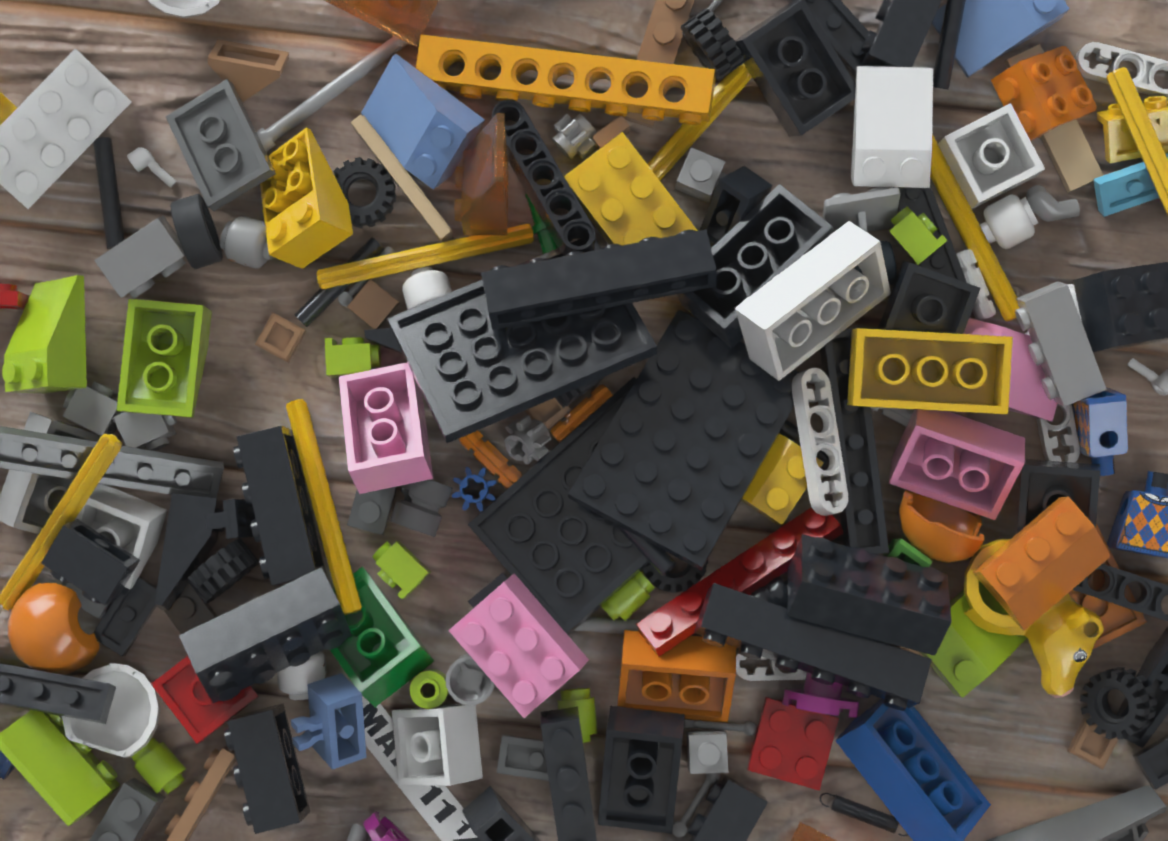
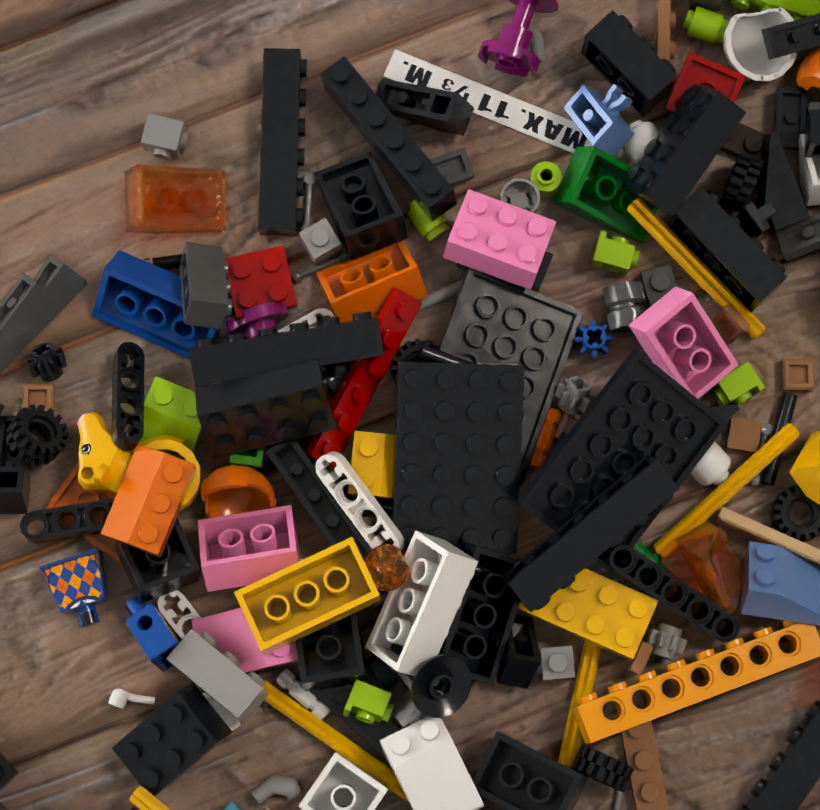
camera: 150 degrees right, 5 degrees down
(321, 427) = (730, 323): none -> medium nougat tile
(437, 745) = (516, 143): white slope -> none
(491, 458) = (589, 368): orange axle -> none
(629, 598) = (436, 321): lime brick -> none
(830, 356) = (387, 567): none -> clear orange piece
(839, 193) = (448, 694): none -> black dish
(861, 766) = (204, 286): none -> dark grey brick
(997, 689) = (131, 396): none -> black beam
(1009, 221) = (302, 756): white head -> none
(1067, 778) = (46, 362): none -> black gear

